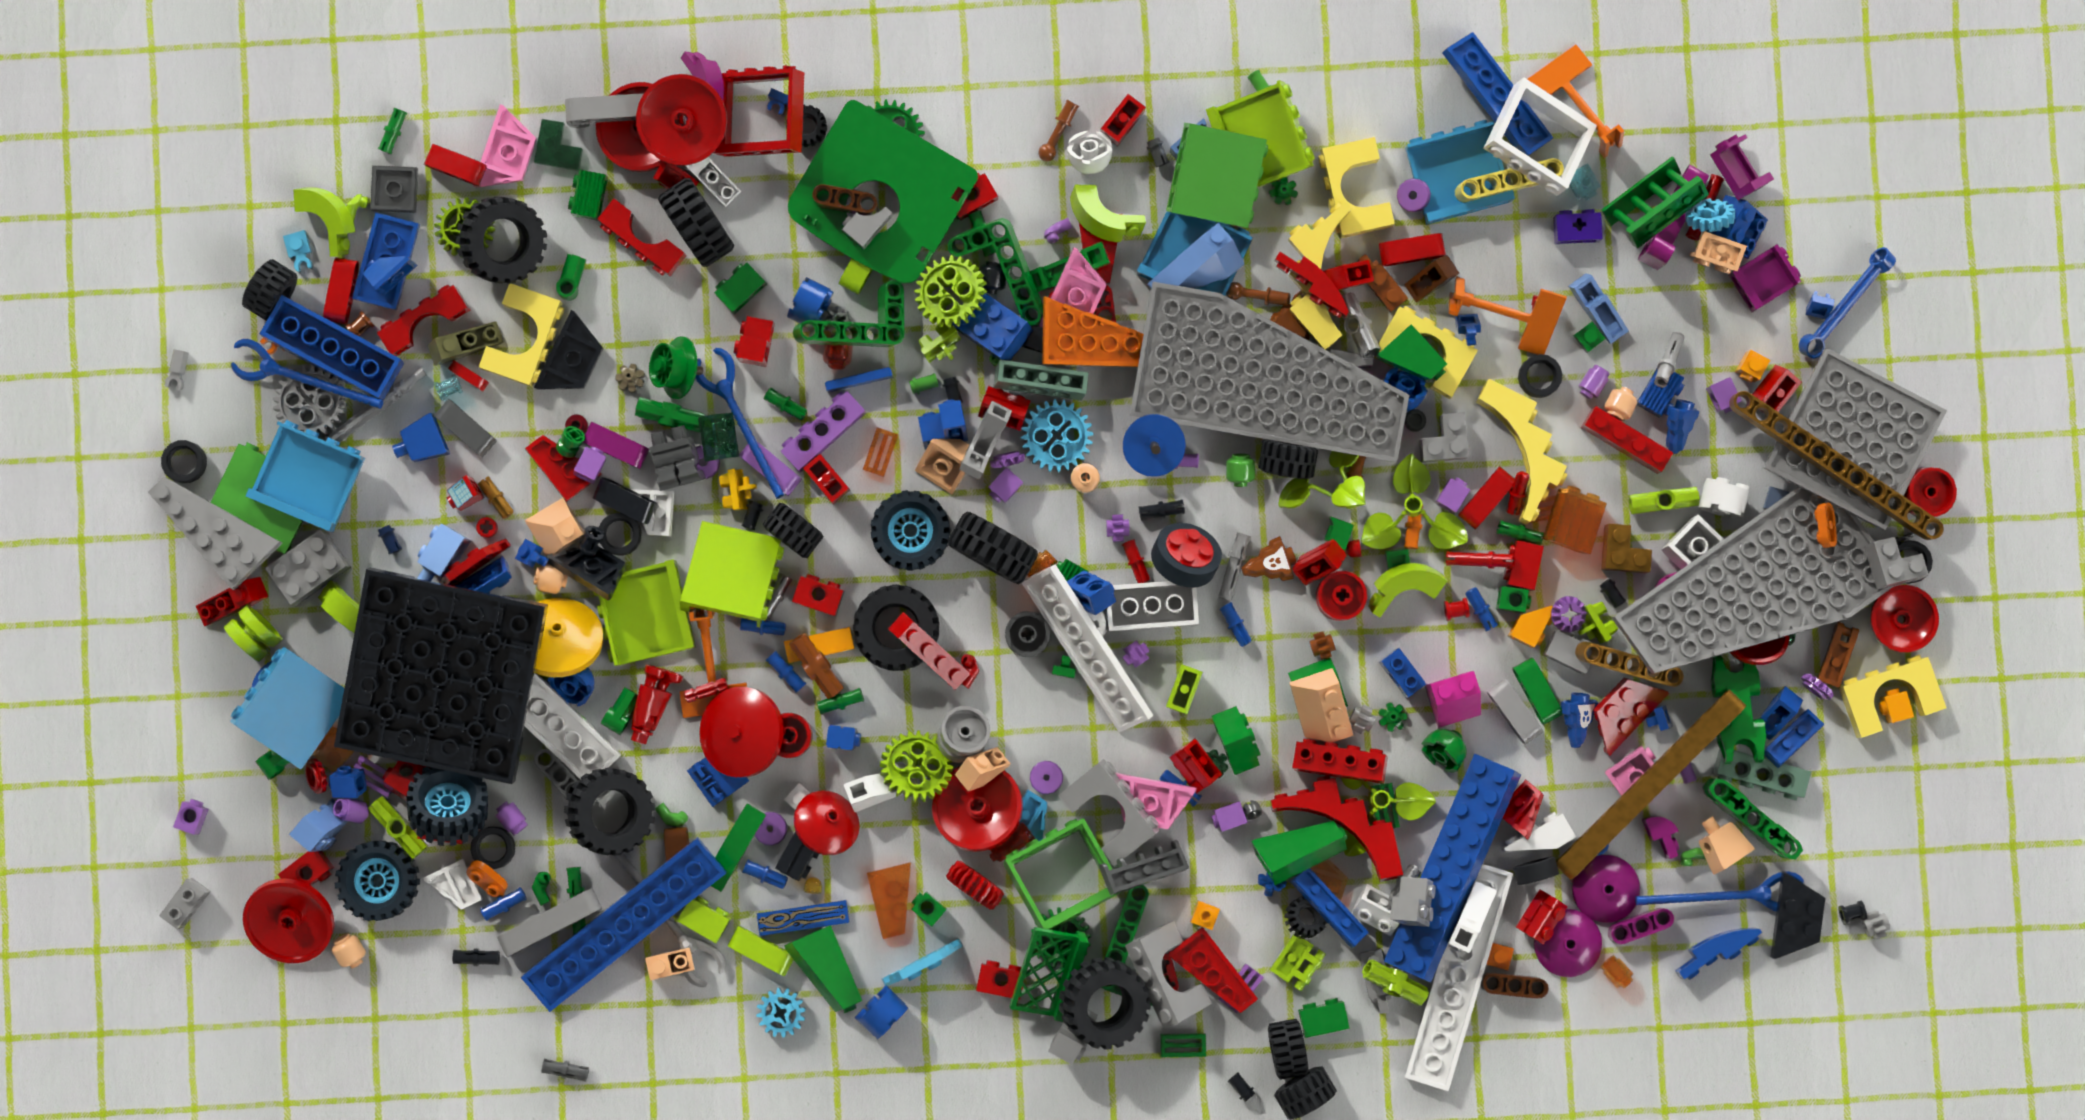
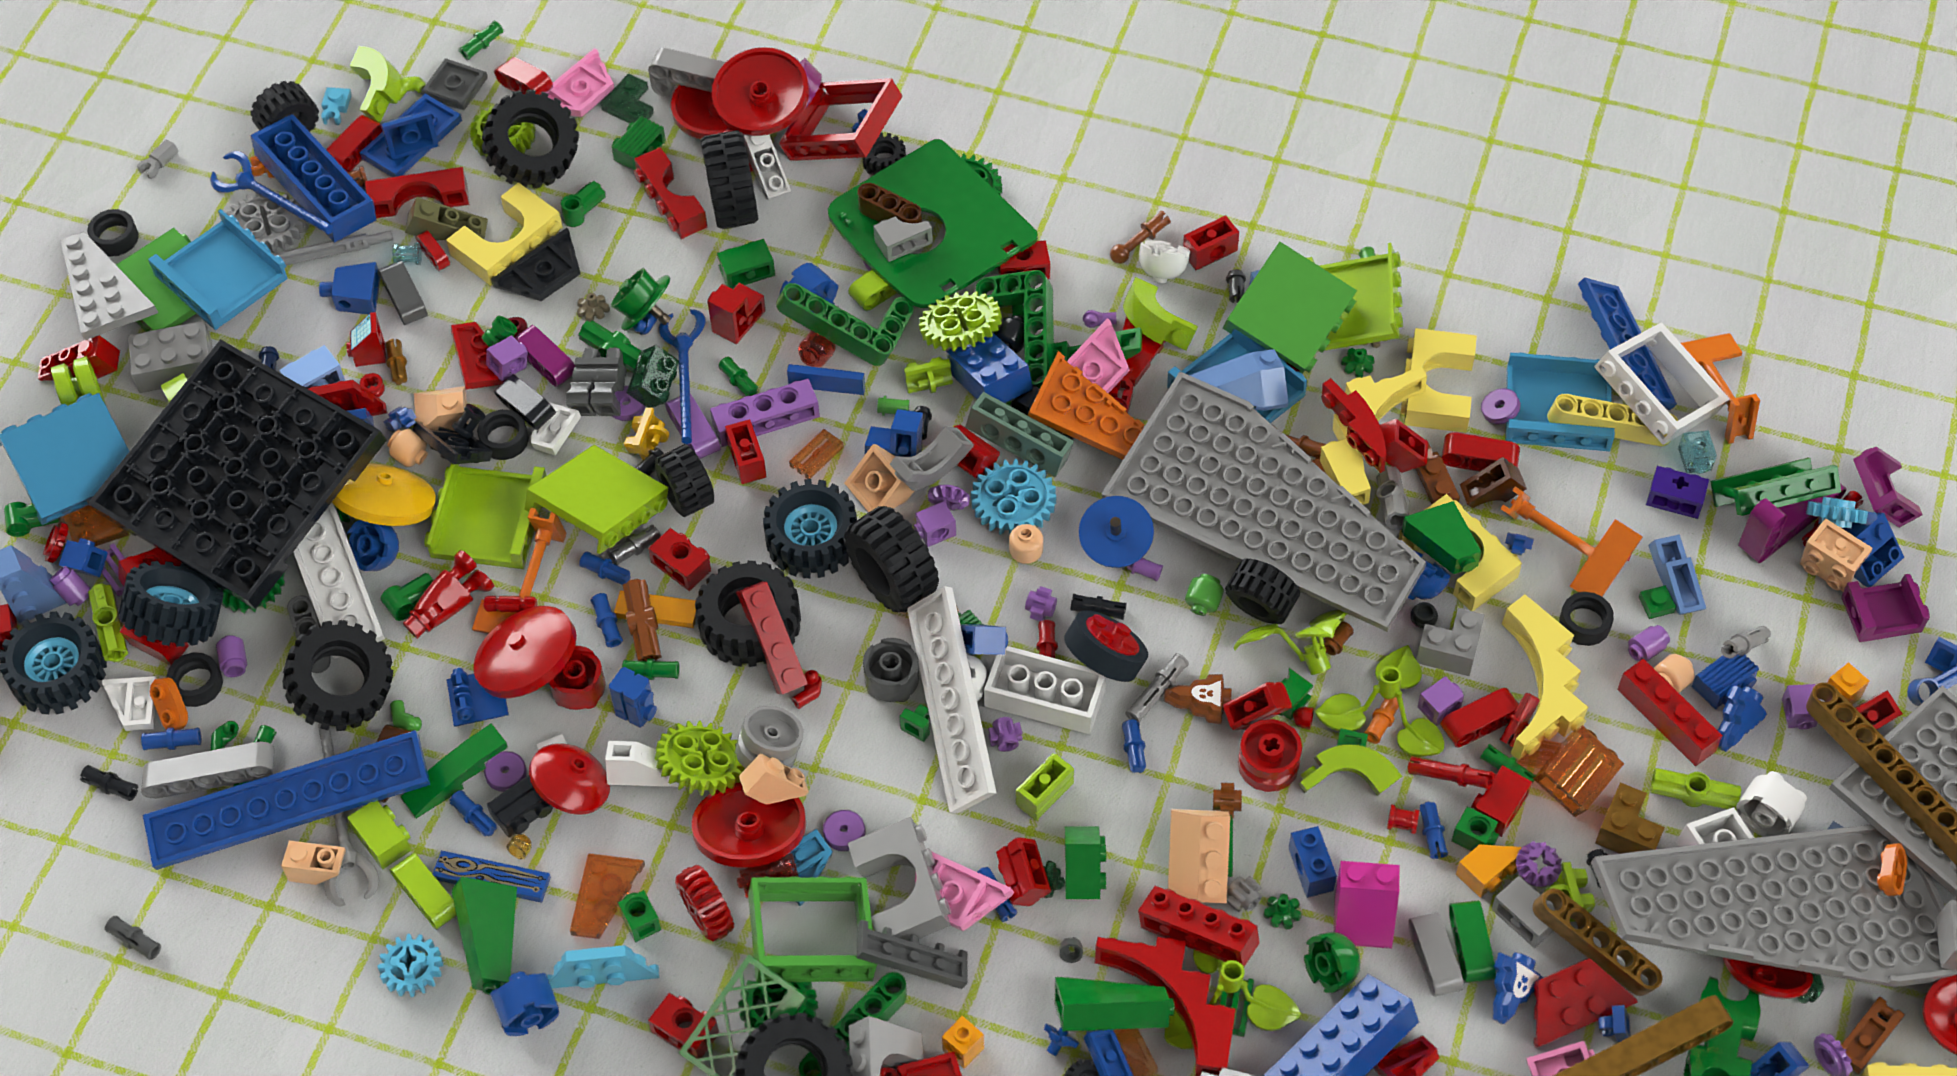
camera: 25 degrees right, 30 degrees down
(1229, 816) = (1040, 944): medium lavender brick -> none

